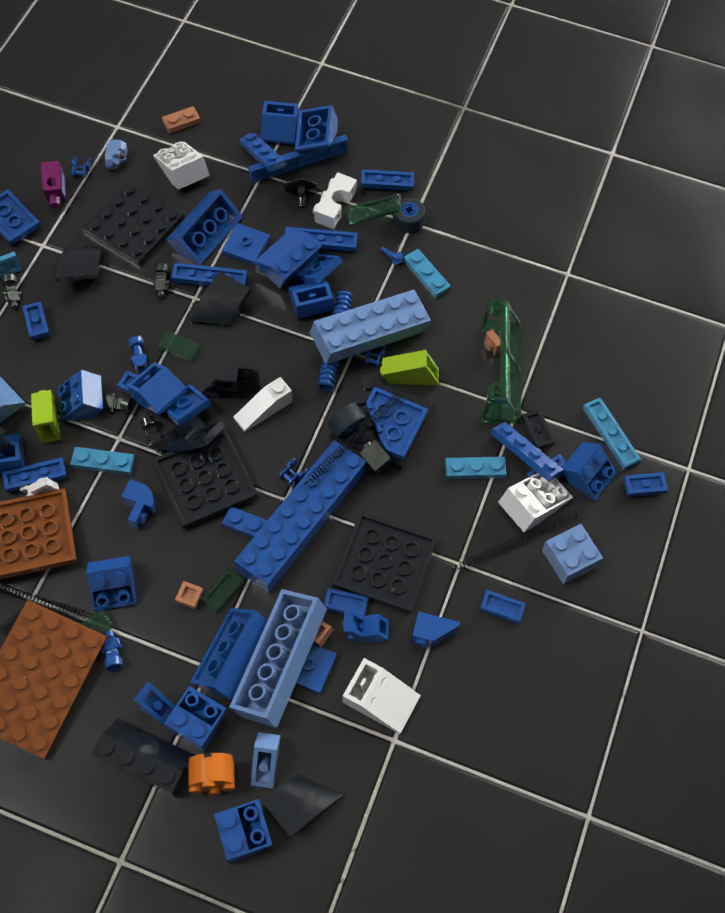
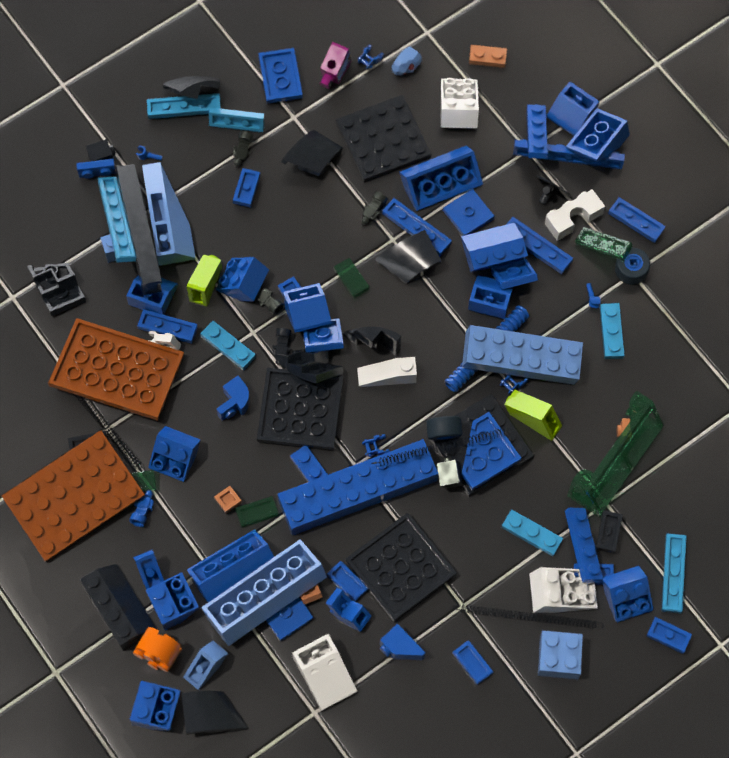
camera: 35 degrees right, 5 degrees up
(139, 360) = (310, 272): blue leg -> none

